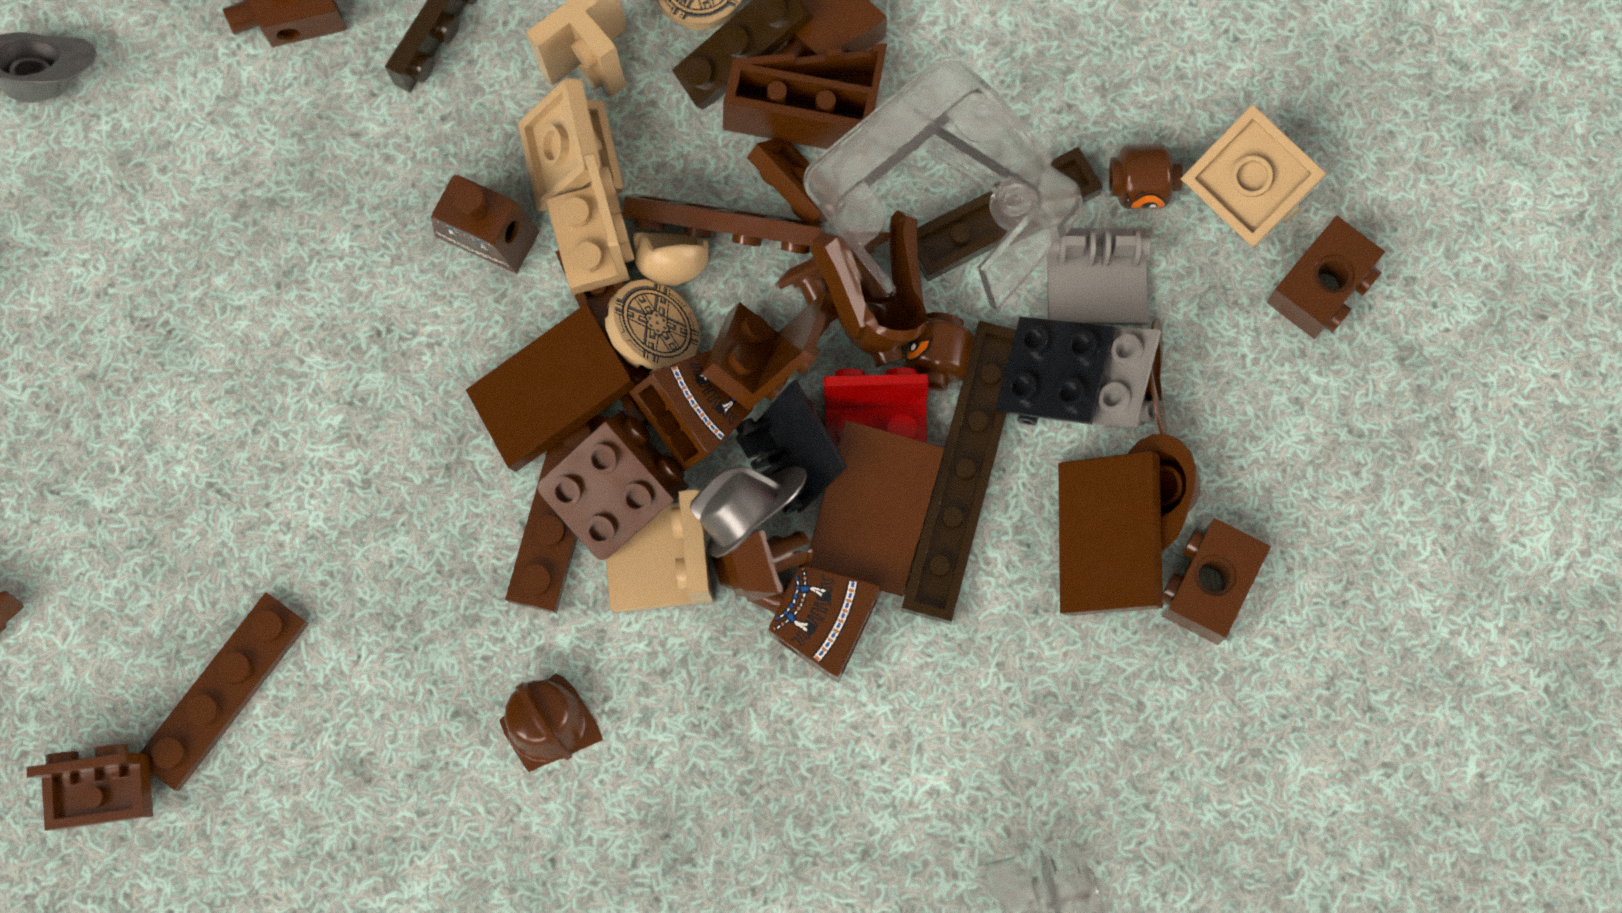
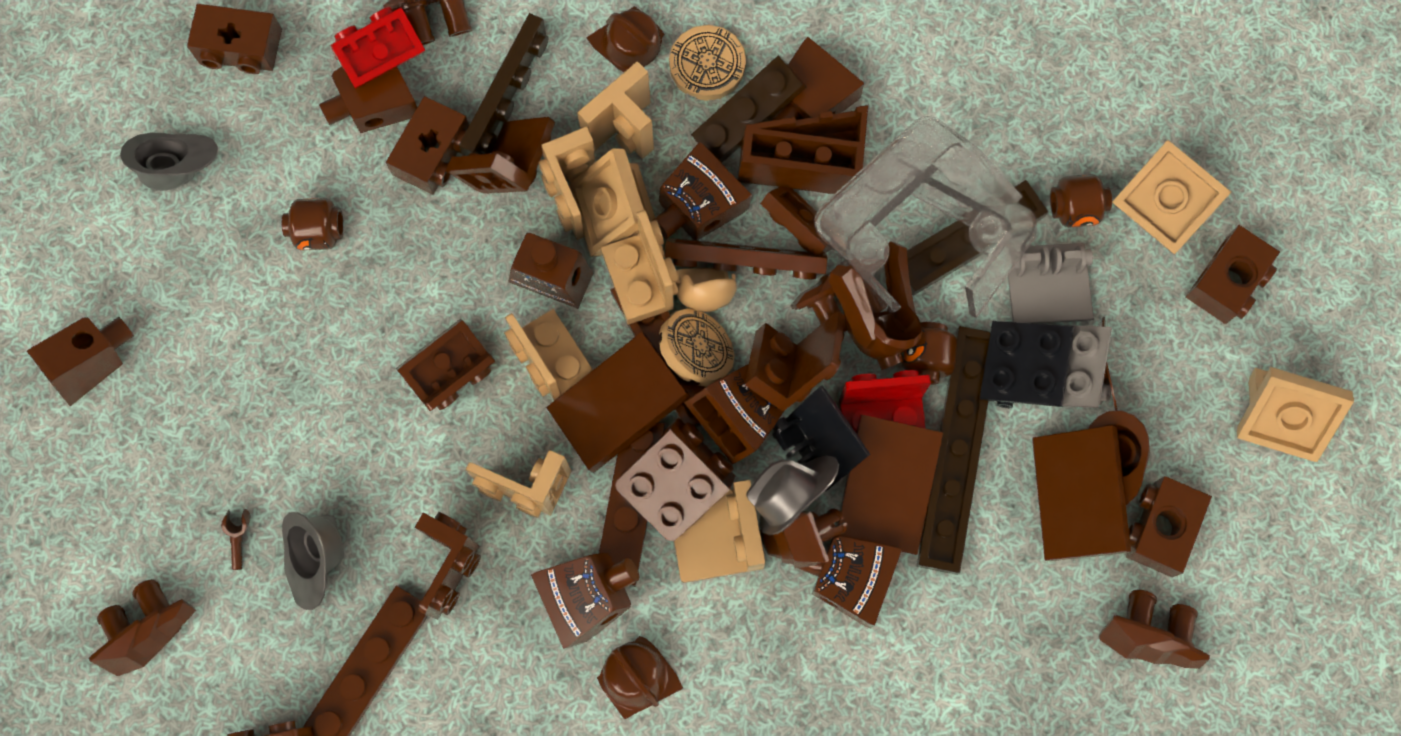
camera: 10 degrees left, 0 degrees up
(79, 521) = (236, 538): none -> reddish brown hand
(167, 546) = (310, 553): none -> flat silver piece
(204, 152) = (313, 224): none -> reddish brown head
(337, 569) = (460, 561): none -> reddish brown bracket
(348, 332) = (446, 366): none -> reddish brown bracket
(349, 66) = (428, 125): none -> reddish brown brick
(447, 93) = (512, 160): none -> reddish brown bracket
(454, 482) = (548, 481): none -> tan bracket
(471, 324) = (552, 353): none -> tan bracket
(489, 618) = (585, 595): none -> reddish brown torso
(510, 92) = (566, 160): none -> tan bracket
(674, 145) = (700, 196): none -> reddish brown torso
(1167, 718) = (1137, 639): none -> reddish brown connector
(1383, 451) = (1292, 413): none -> tan bracket

